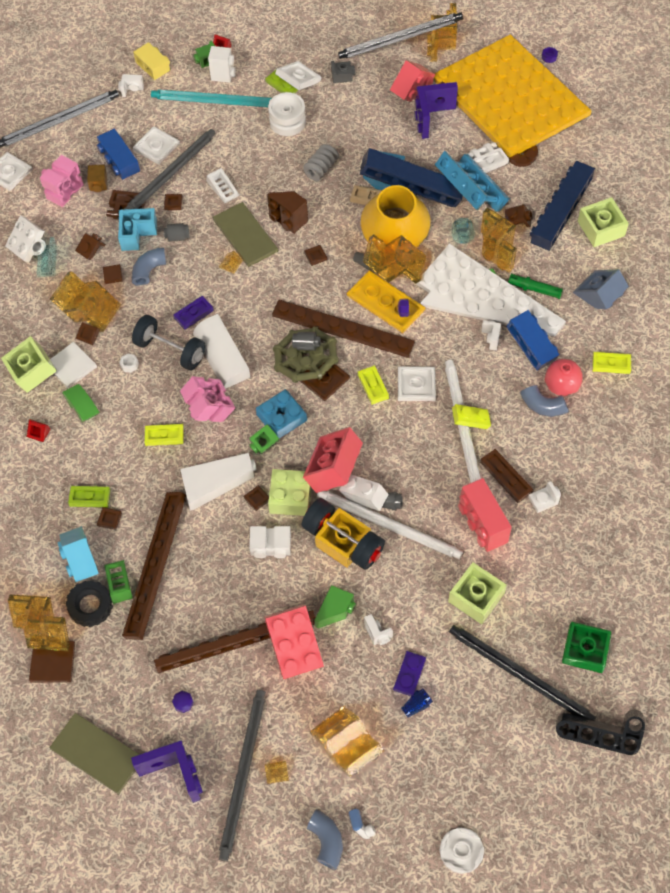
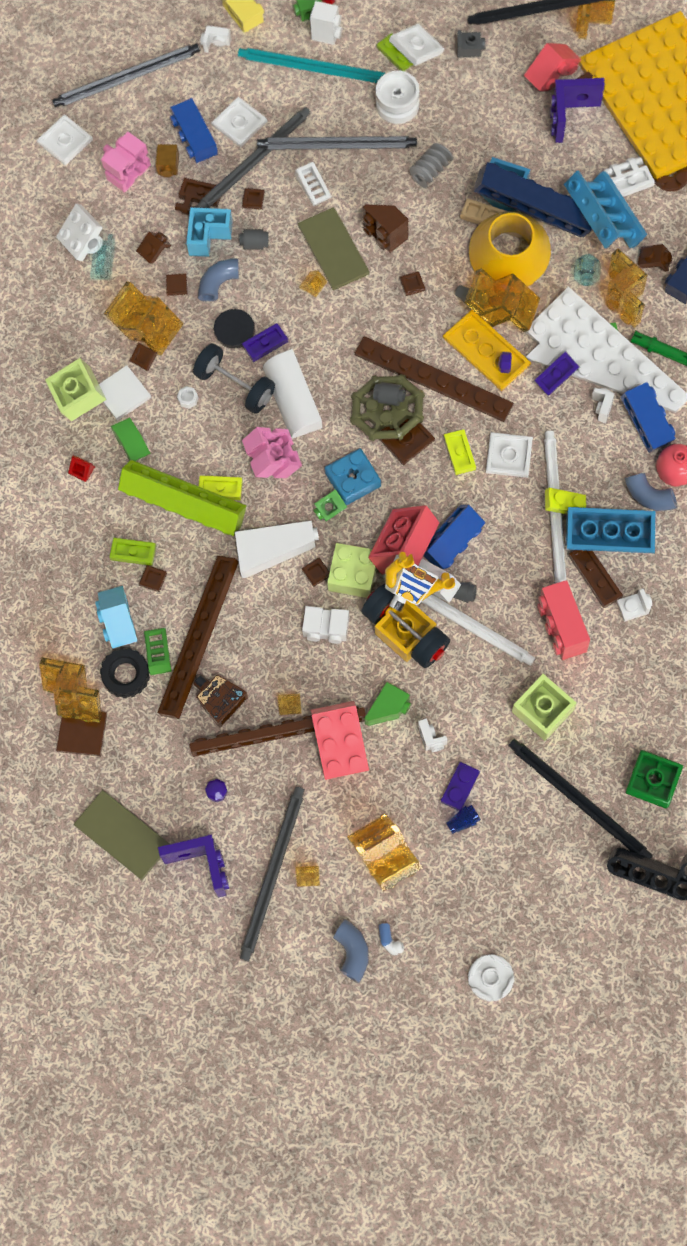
camera: 10 degrees right, 10 degrees up
(130, 445) = (181, 497): none -> lime brick
(165, 303) = (234, 328): none -> black tile
(178, 616) = (219, 698): none -> torso
(244, 615) = (289, 704): none -> clear yellow slope
(250, 151) = (354, 142): none -> piece
(344, 491) = (412, 582): none -> torso
(377, 453) = (453, 536): none -> blue brick
(449, 313) = (557, 373): none -> dark purple plate
(514, 434) = (610, 530): none -> dark azure slope

